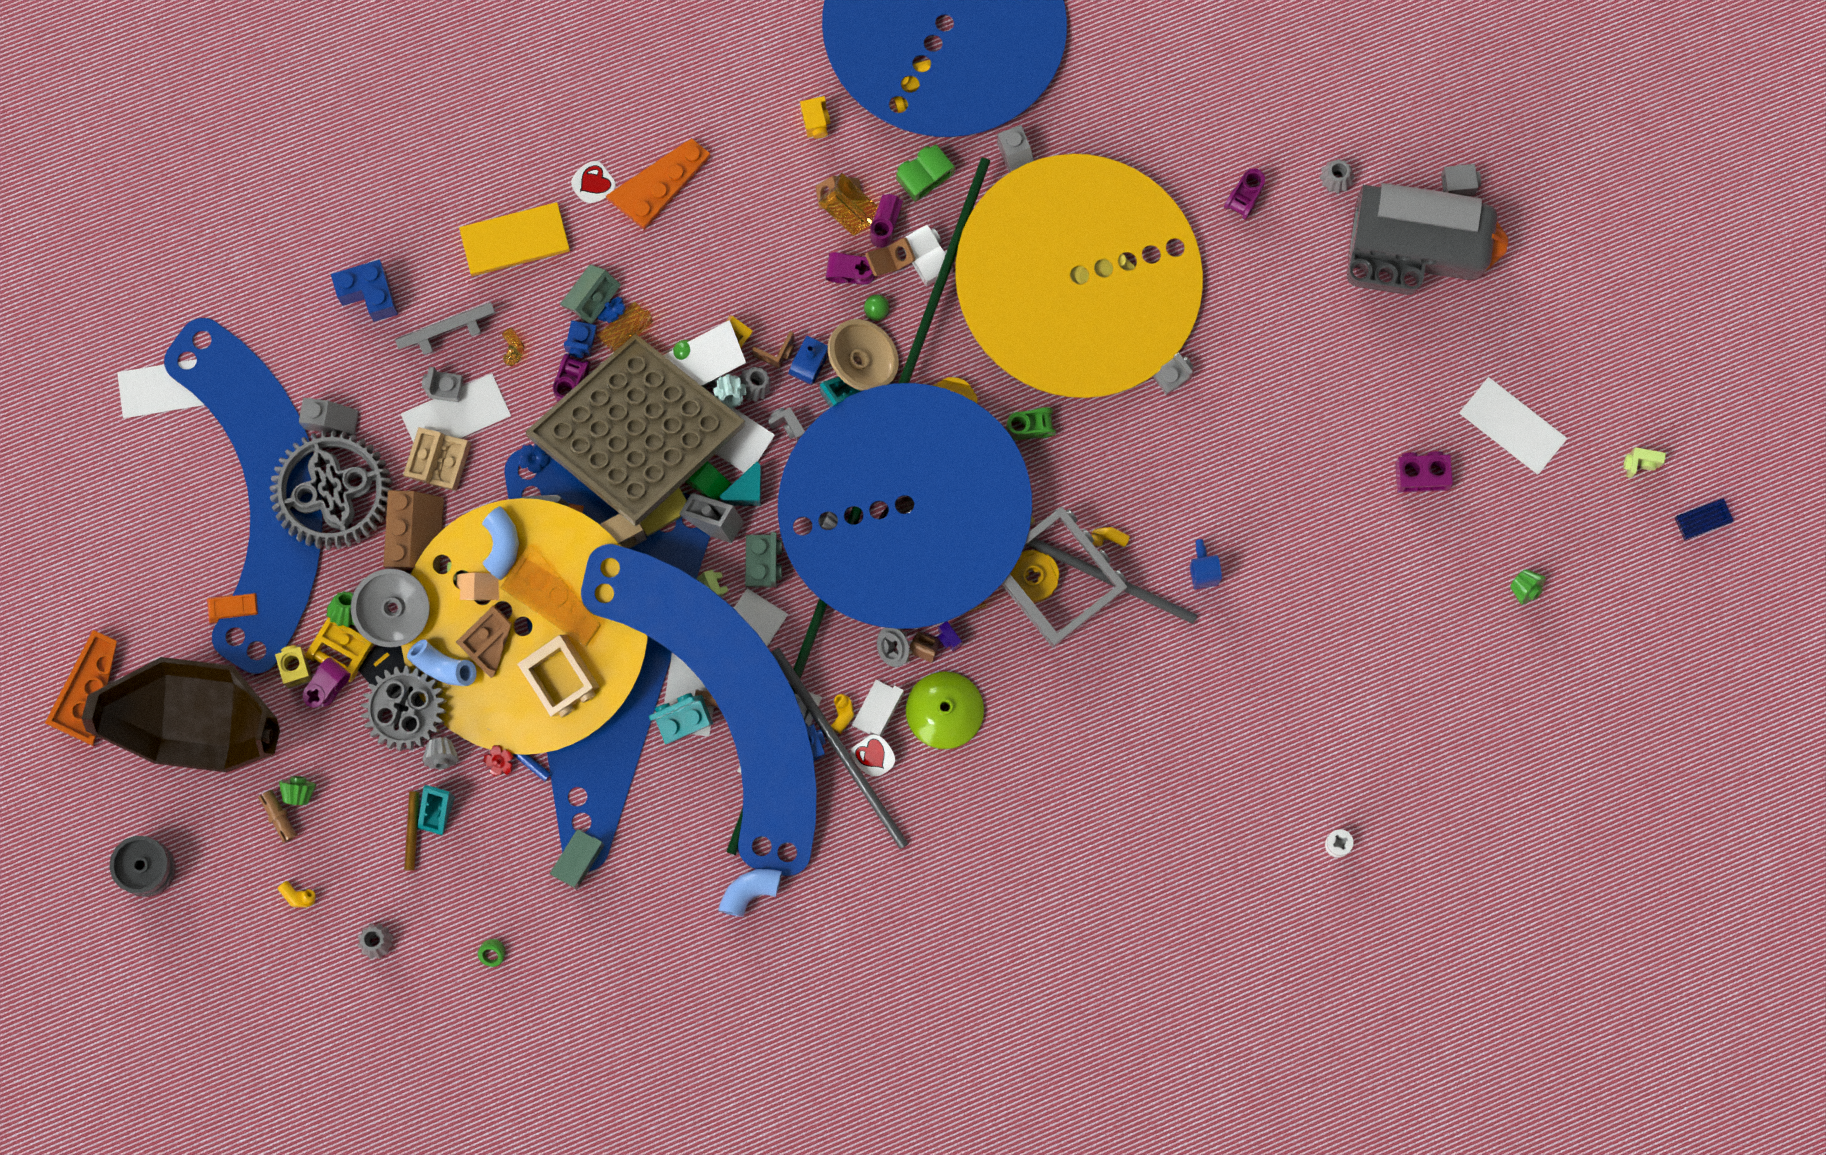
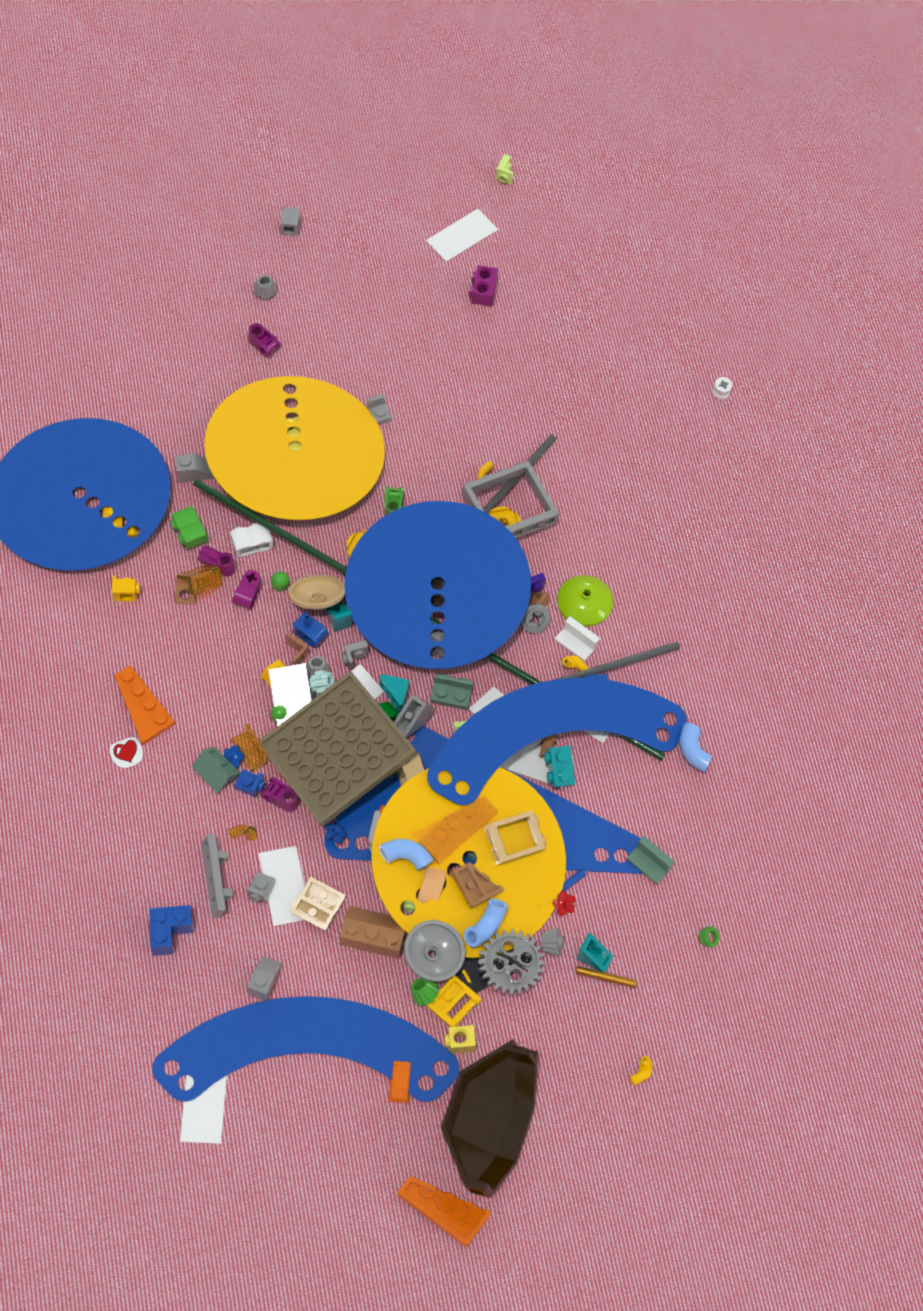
camera: 85 degrees left, 15 degrees down
(128, 870) = (608, 1173): dark grey wheel -> none
(277, 816) = (577, 1074): medium nougat pin -> none
(284, 505) = (334, 982): light grey gear -> none
(296, 790) = (561, 1054): bright green piece -> none
(328, 680) = (479, 1012): magenta piece -> none
(366, 937) = (684, 1024): light grey piece -> none
(514, 239) = (156, 815): yellow tile -> none
(873, 755) = (611, 647): sticker -> none
(887, 260) = (250, 563): medium nougat bracket -> none
(1204, 569) = (523, 419): blue piece -> none
(1421, 233) = (323, 247): dark grey piece -> none
(1527, 586) = (573, 247): bright green piece -> none
(1704, 519) = (548, 151): clear blue tile -> none

